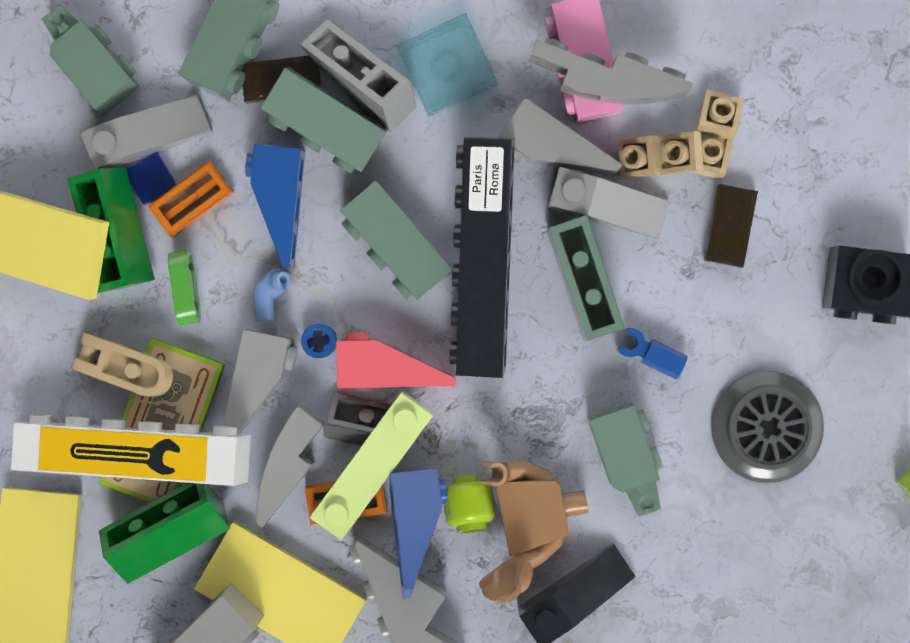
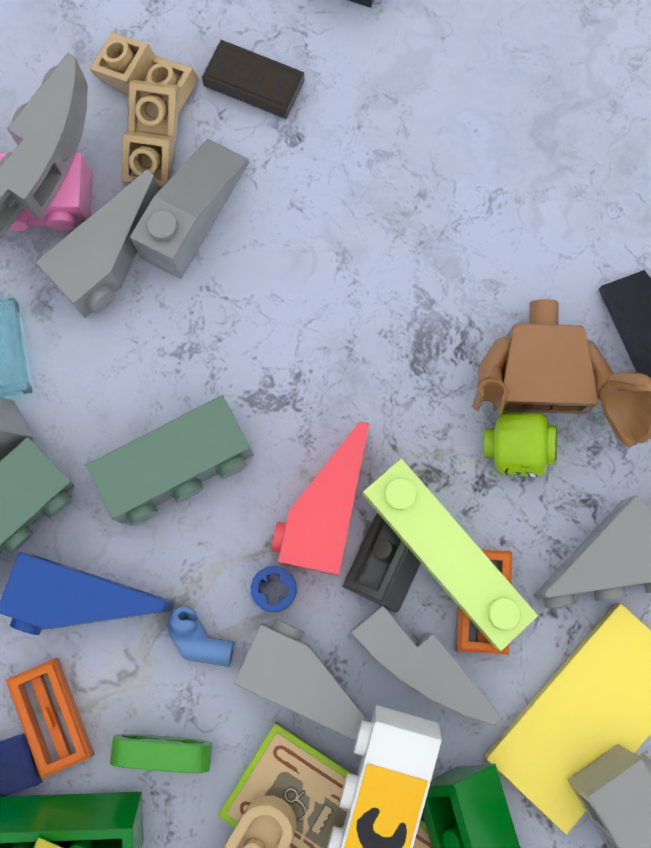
camera: 75 degrees left, 10 degrees down
(415, 511) = (522, 510): slope -> none
(484, 256) = (212, 350): black brick -> none
(585, 278) = (272, 241): sand green brick -> none
(627, 456) = (497, 243): sand green hinge -> none
(655, 355) = (382, 190): blue bar -> none
(728, 413) = (493, 132): dark grey piece -> none

